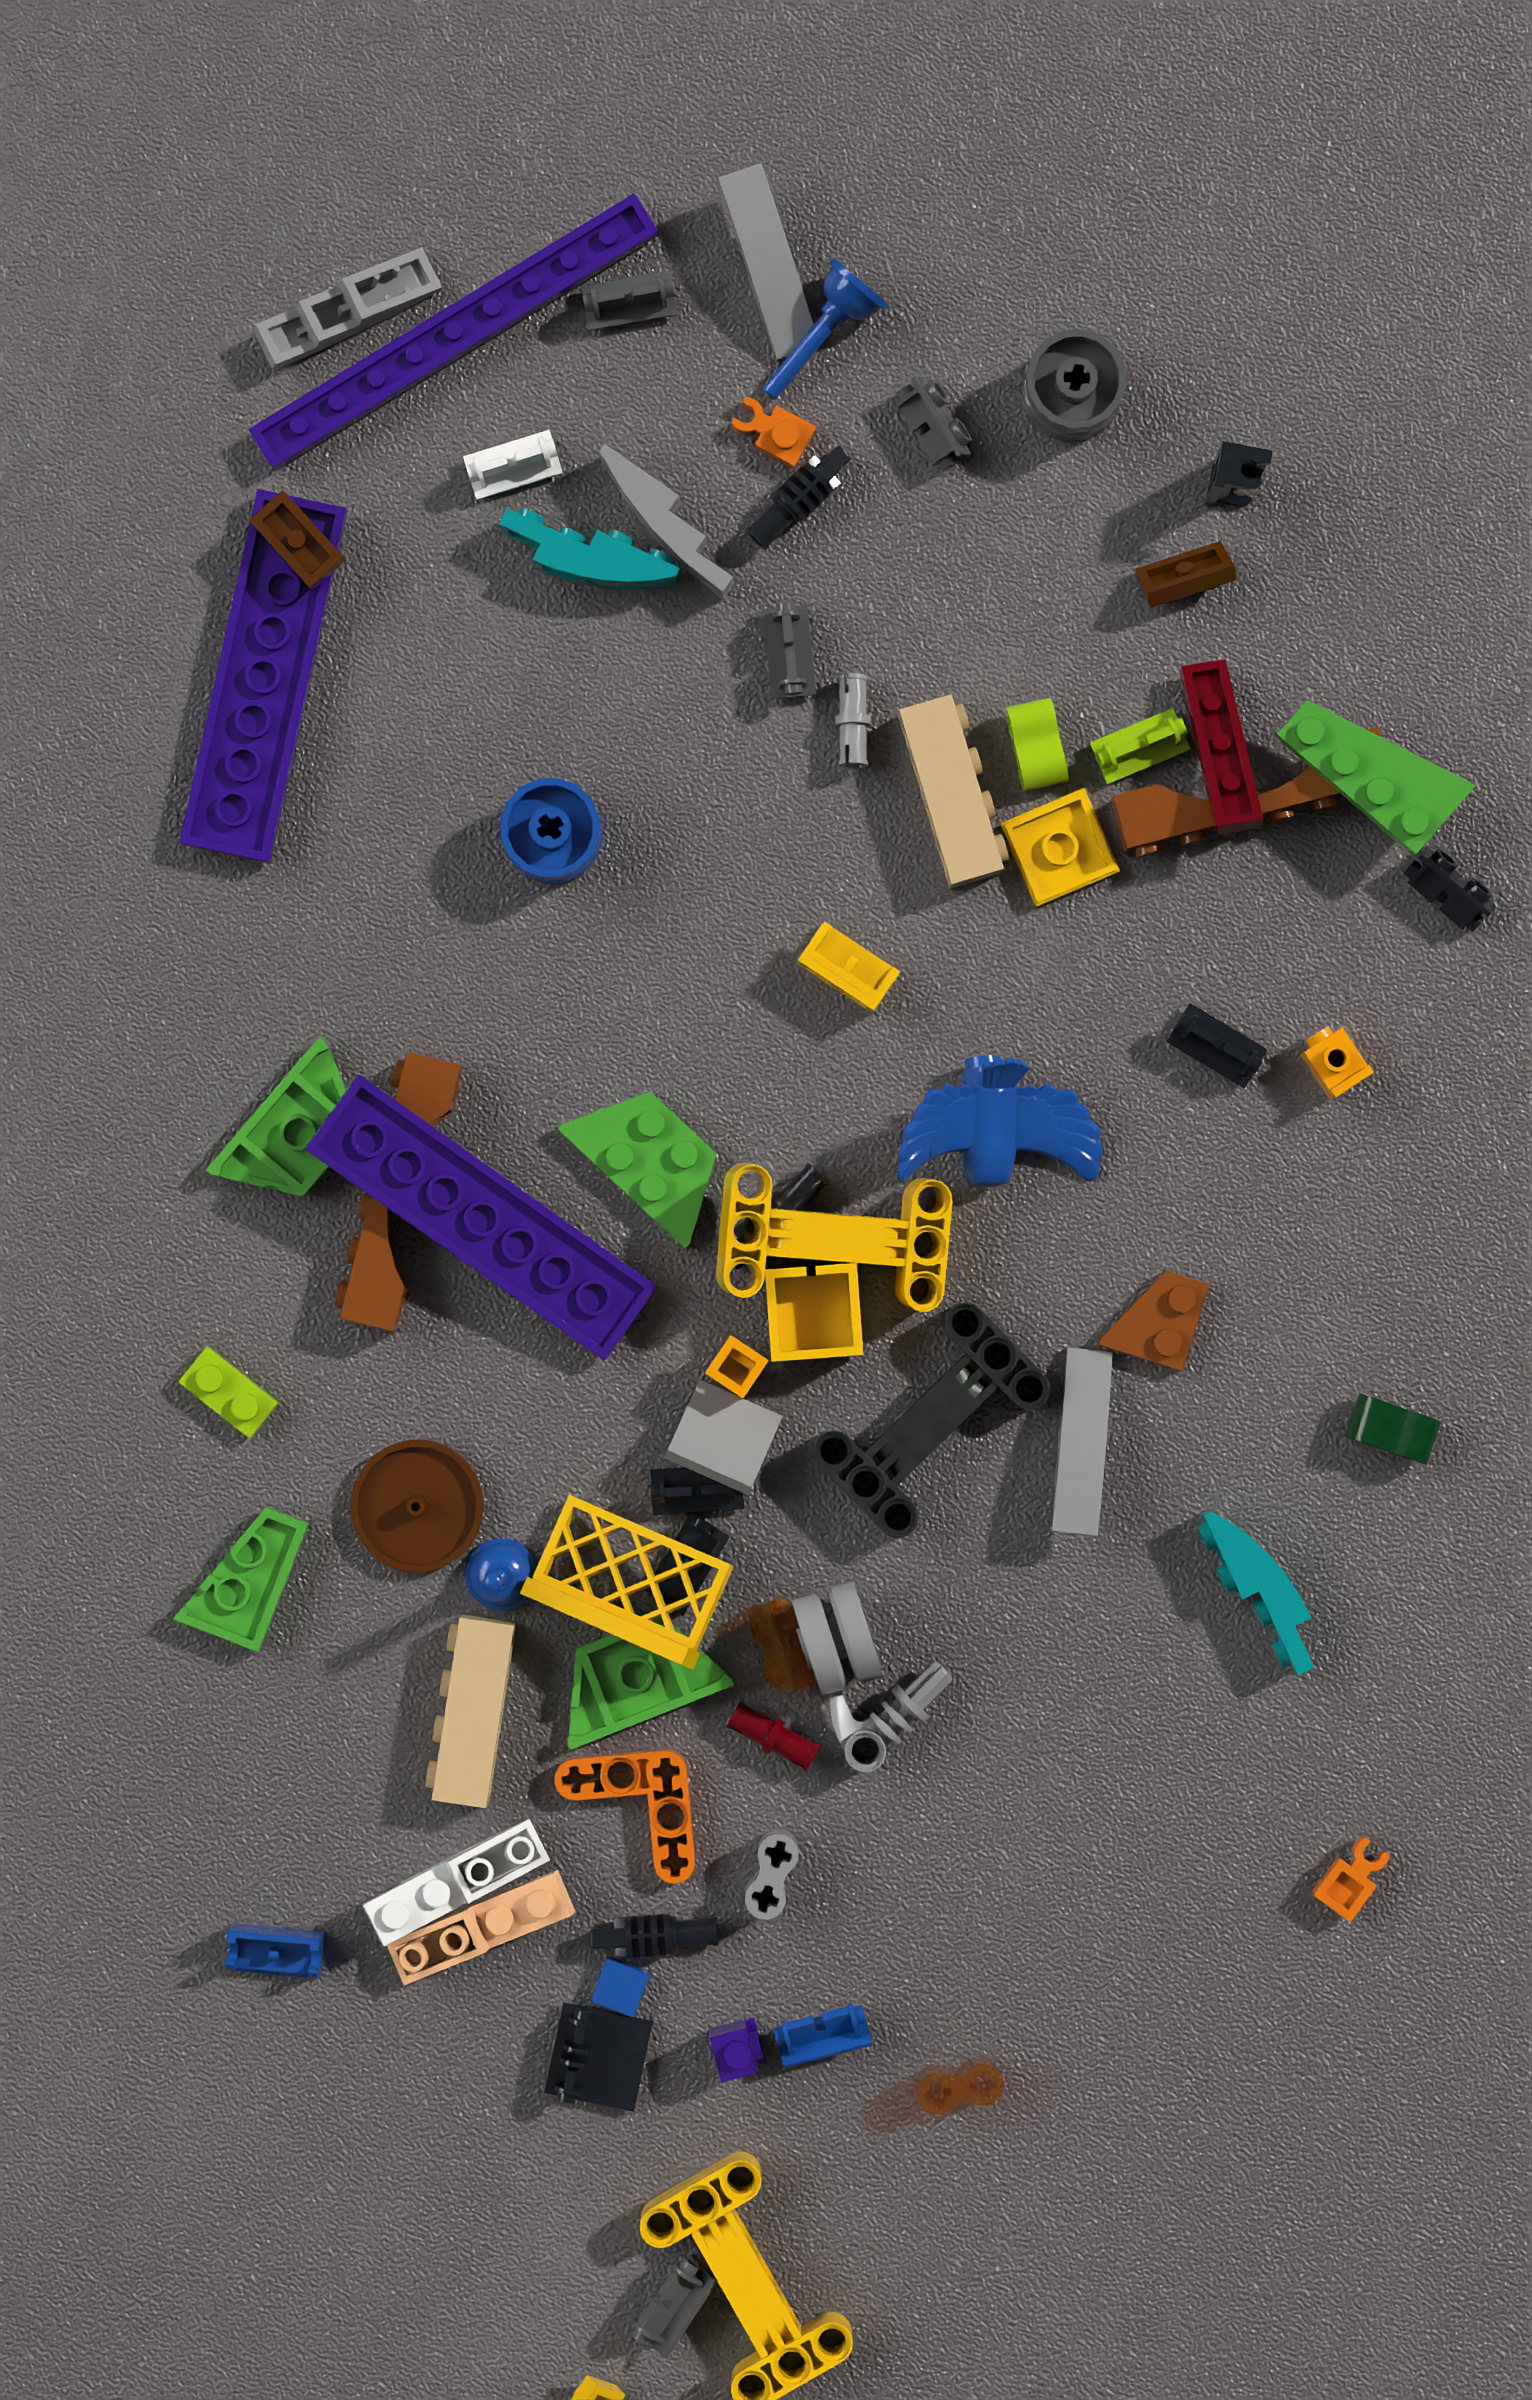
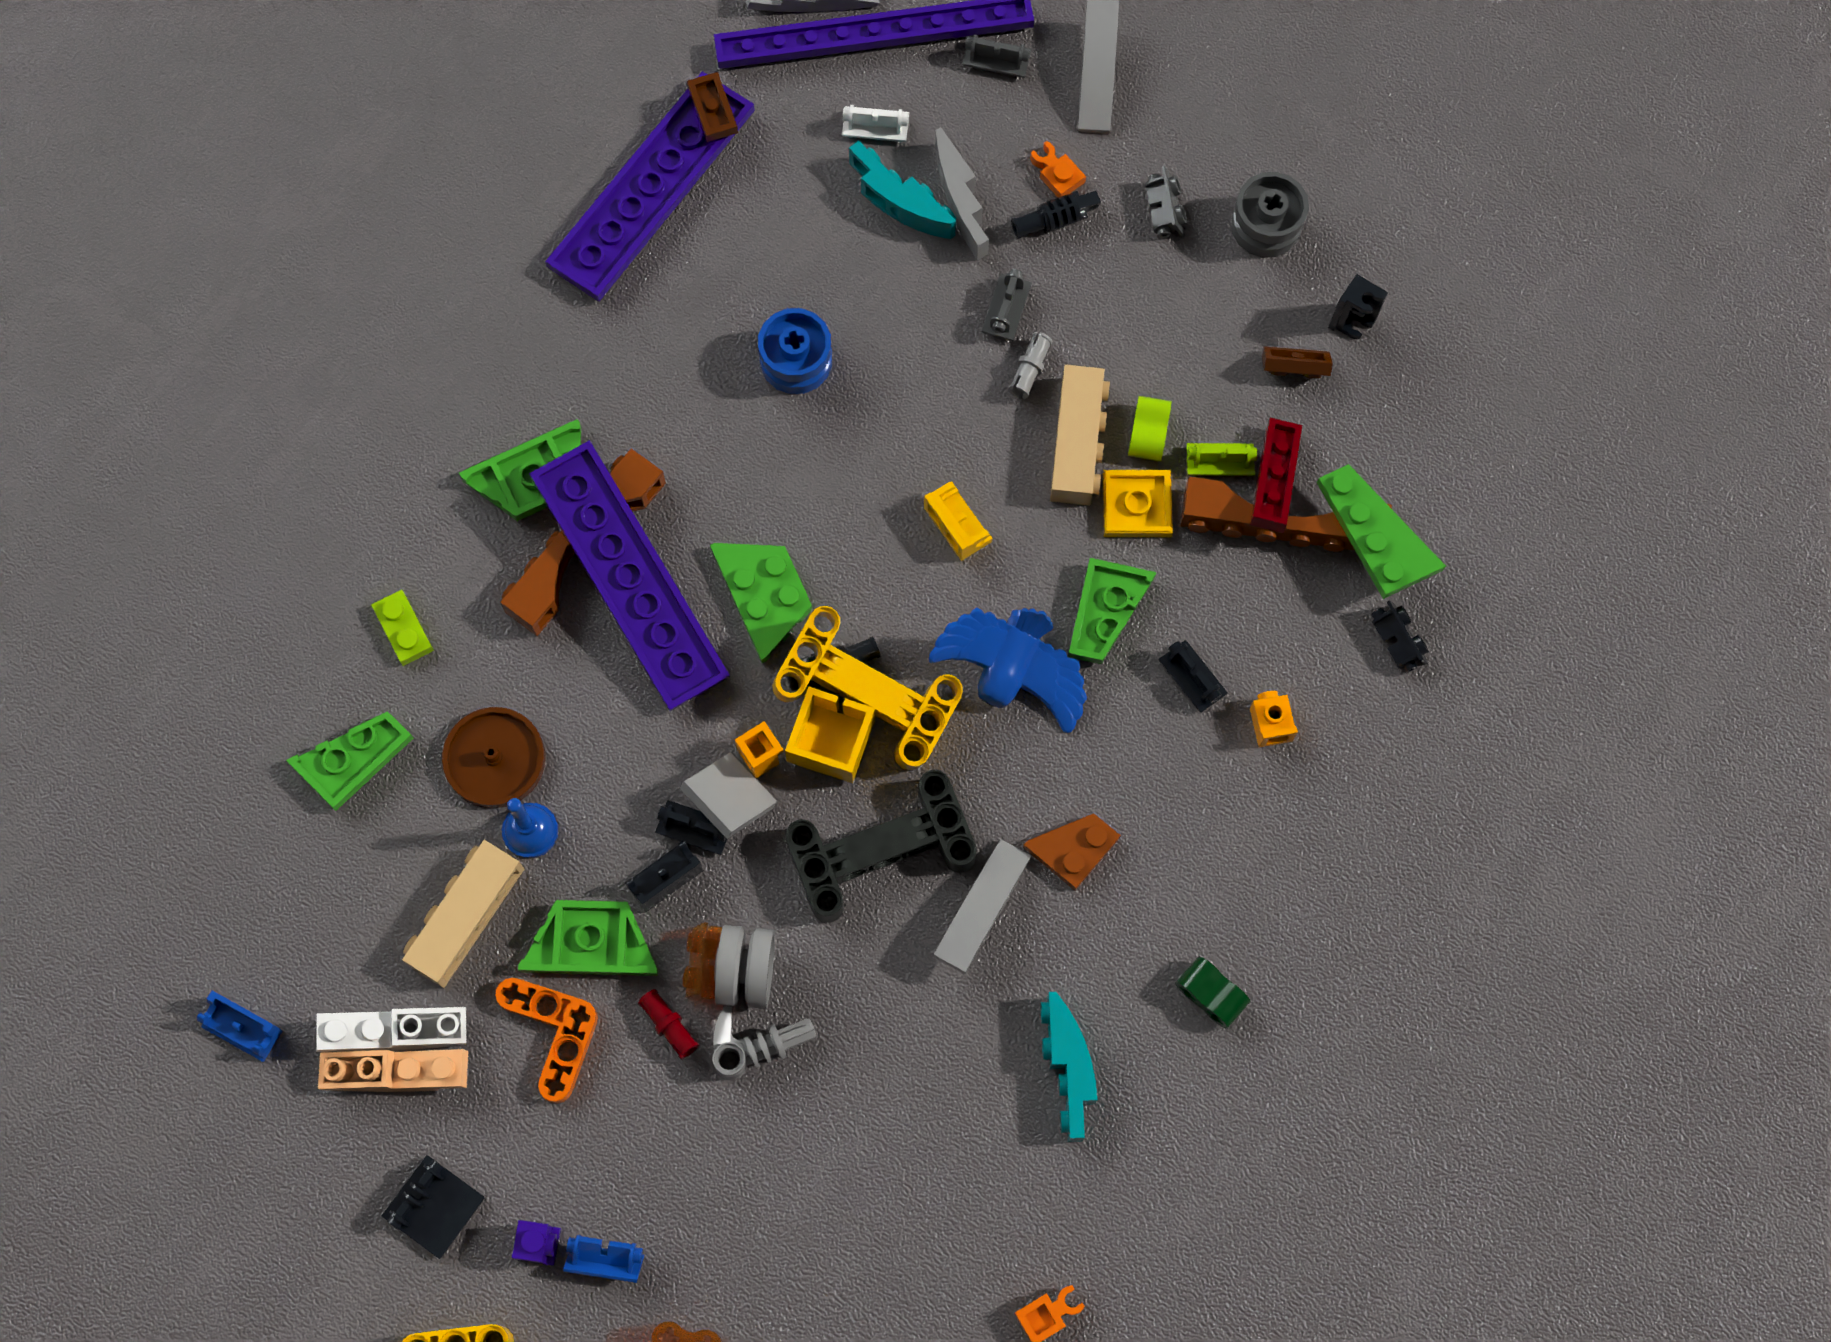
camera: 20 degrees right, 15 degrees down
(611, 1618) = (597, 891): yellow fence -> none
(620, 1986) = (473, 1161): blue tile -> none
(654, 1935) = (515, 1132): black hinge -> none
(771, 1874) = (622, 1124): light grey axle -> none
(846, 299) = (1140, 105): blue piece -> none
(1075, 1003) = (1105, 607): none -> bright green wing

